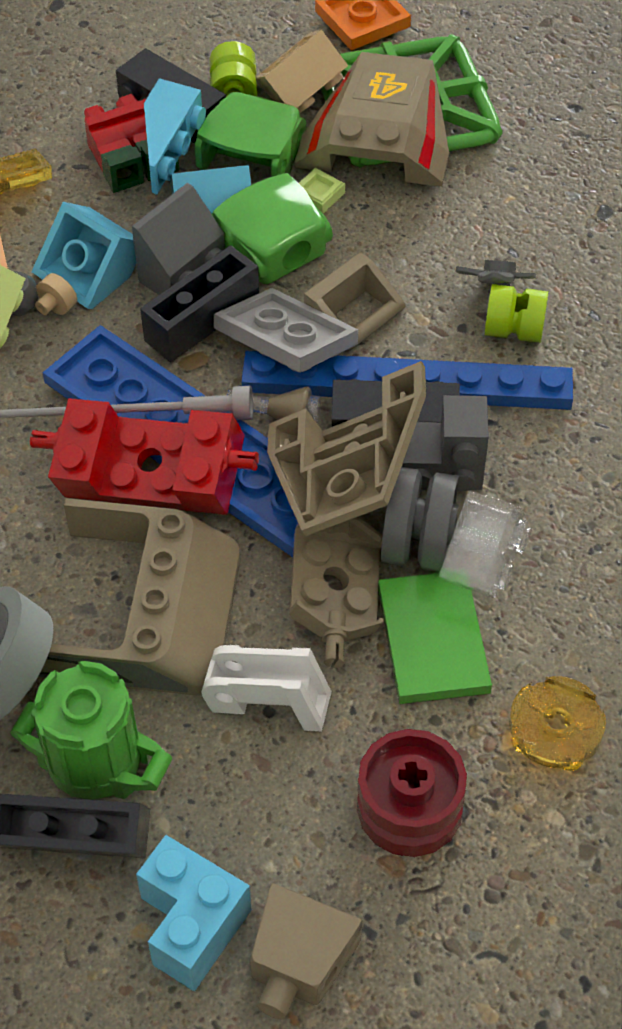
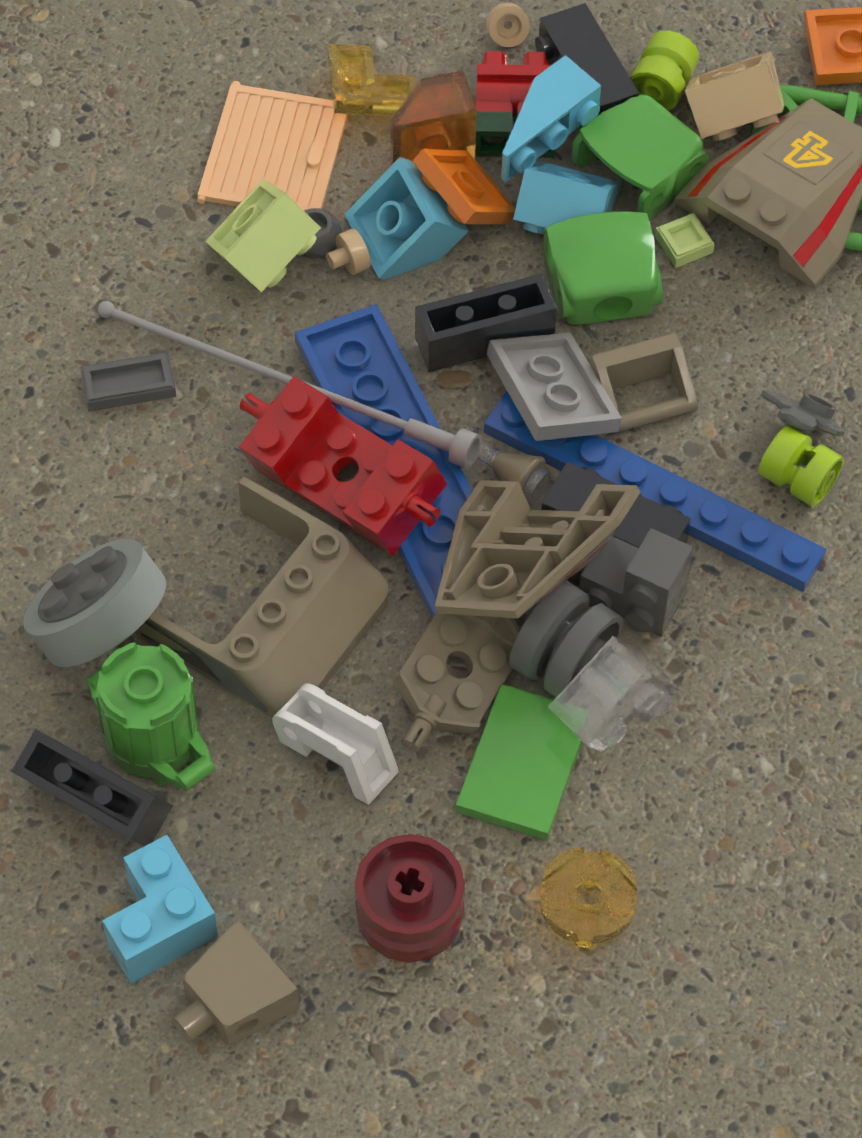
camera: 25 degrees right, 5 degrees up
(78, 168) = (435, 116): none -> clear orange slope
(89, 87) = (513, 31): none -> tan tile
(110, 202) = (464, 187): none -> orange plate
(175, 239) = (496, 243): dark grey slope -> none

